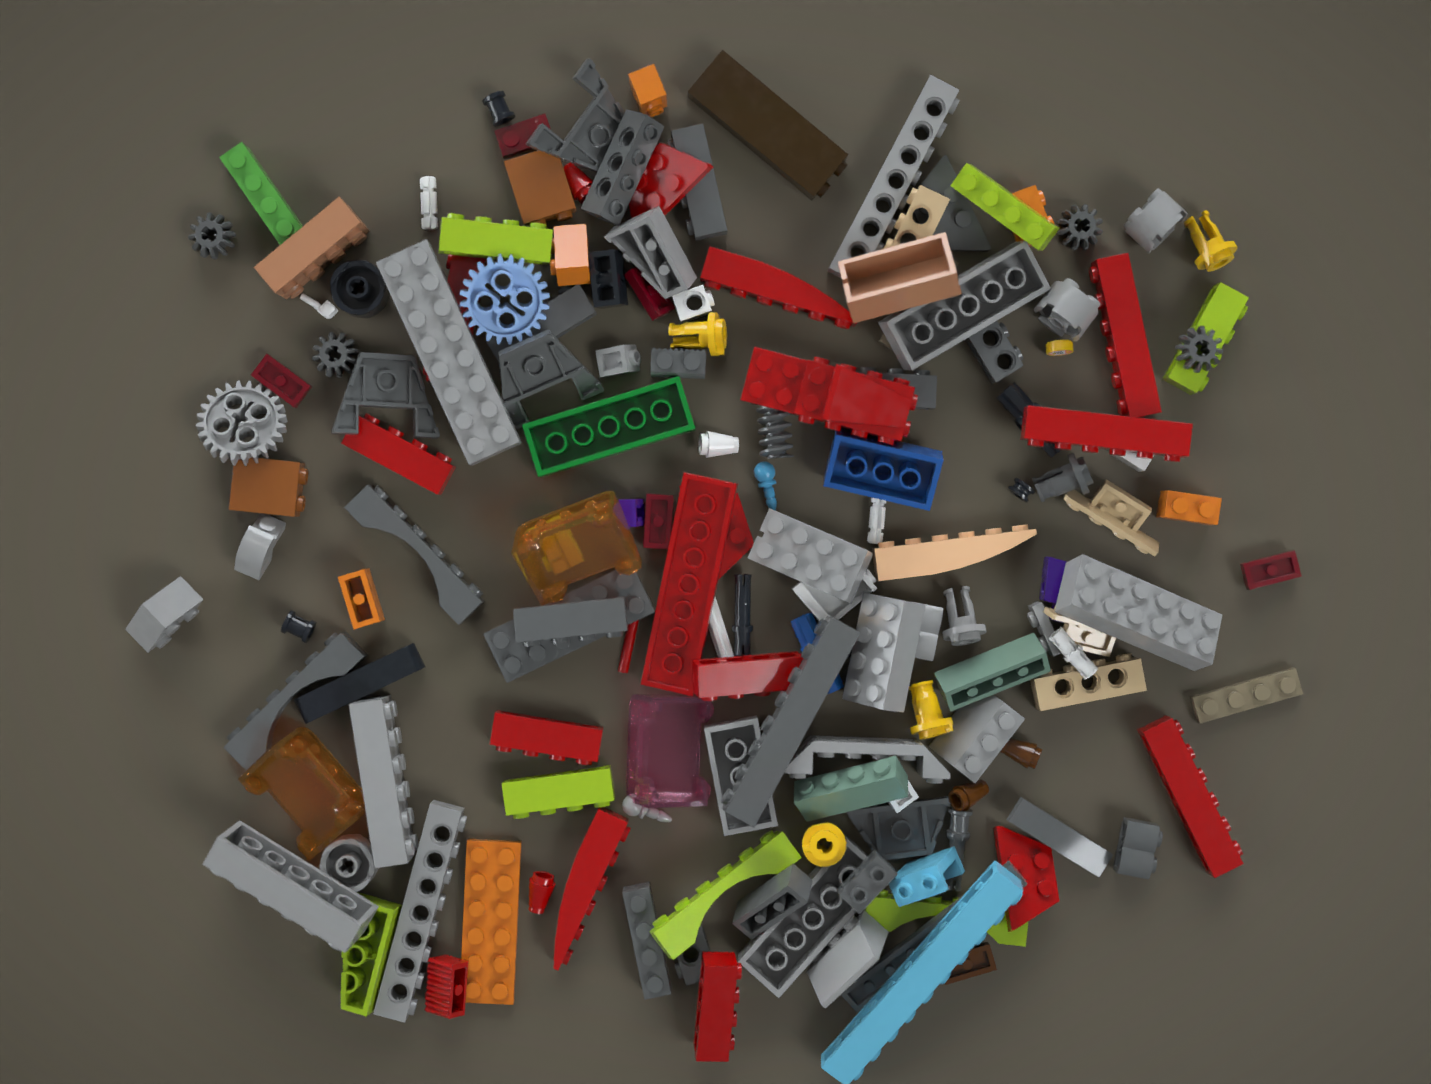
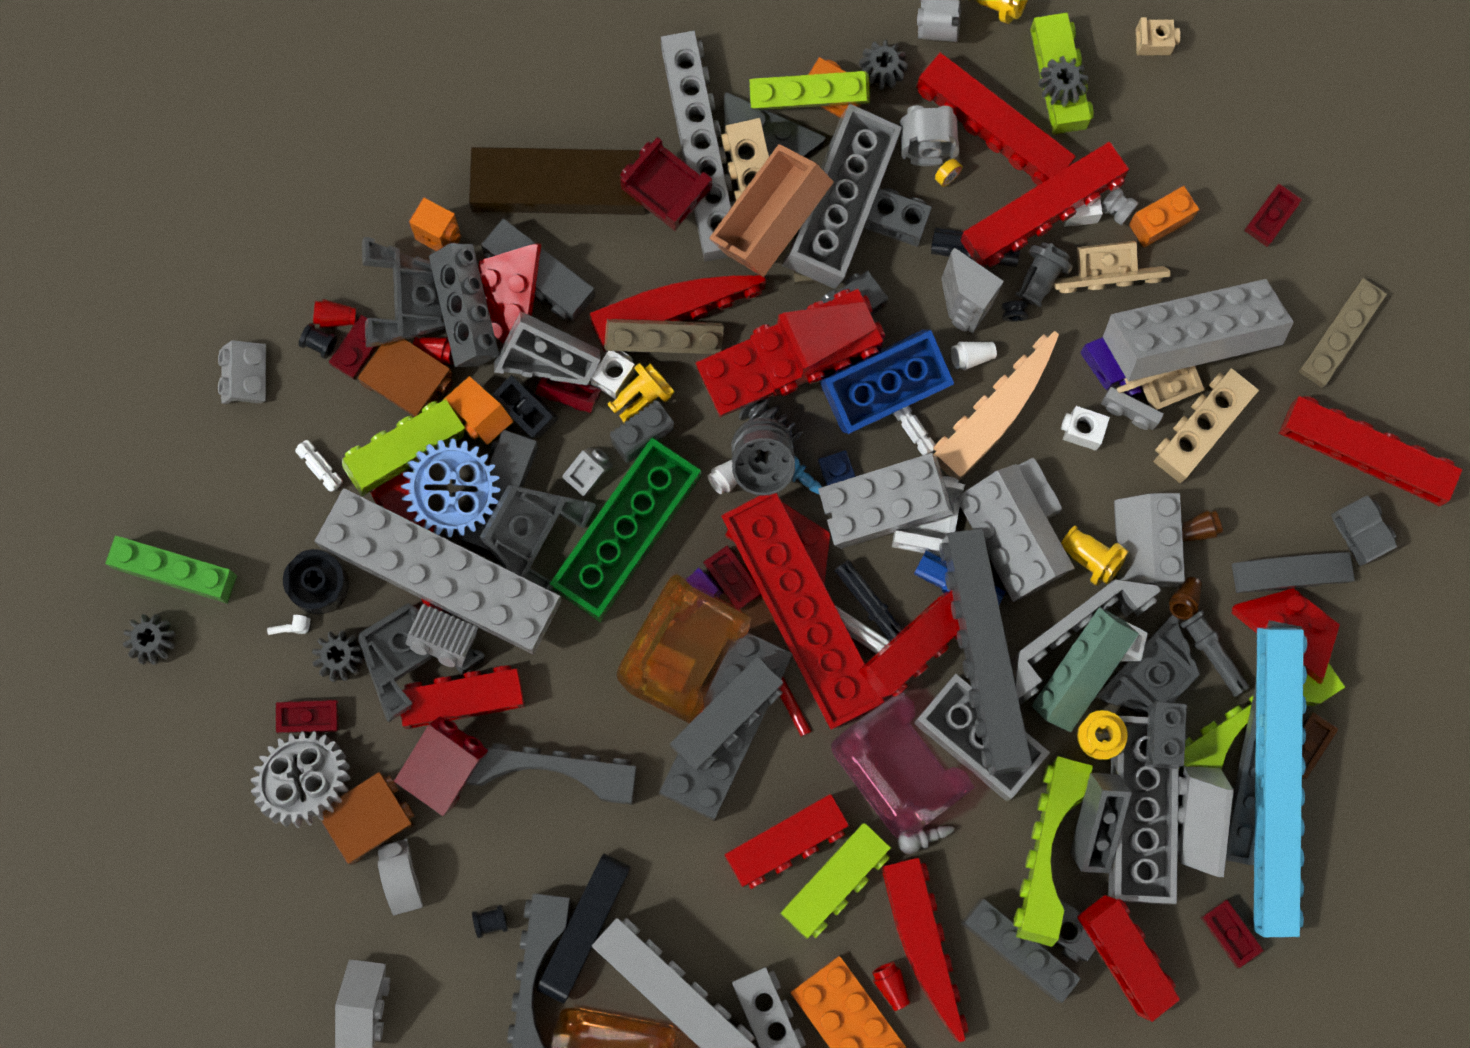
camera: 45 degrees left, 10 degrees down
(312, 249) = (248, 578): nougat piece -> none
(346, 492) = (441, 765): none -> dark red panel
(361, 598) = (527, 849): orange brick -> none
(416, 400) = (441, 636): none -> light grey brick
(426, 89) = (242, 372): none -> light grey bracket
(525, 97) = (333, 314): none -> red cone
(746, 455) = (759, 470): none -> dark grey wheel
(749, 306) = (663, 336): none -> dark tan plate
(797, 502) = (836, 468): none -> dark blue plate
(803, 1045) = (1231, 934): none -> dark red plate
(840, 192) = (664, 184): none -> dark red panel
(926, 876) = (1211, 692): medium azure panel -> none
(962, 629) = (1064, 462): light grey piece -> none
(963, 496) = (970, 354): none -> white cone
(992, 671) = (1118, 478): sand green brick -> none
(995, 451) = (968, 291): none -> light grey slope
(1010, 620) = (1096, 422): none -> white brick
(1073, 653) = (1172, 406): white pin -> none
(1162, 473) = (1119, 206): none -> light grey wheel
(1292, 368) = (1148, 40): none -> tan brick

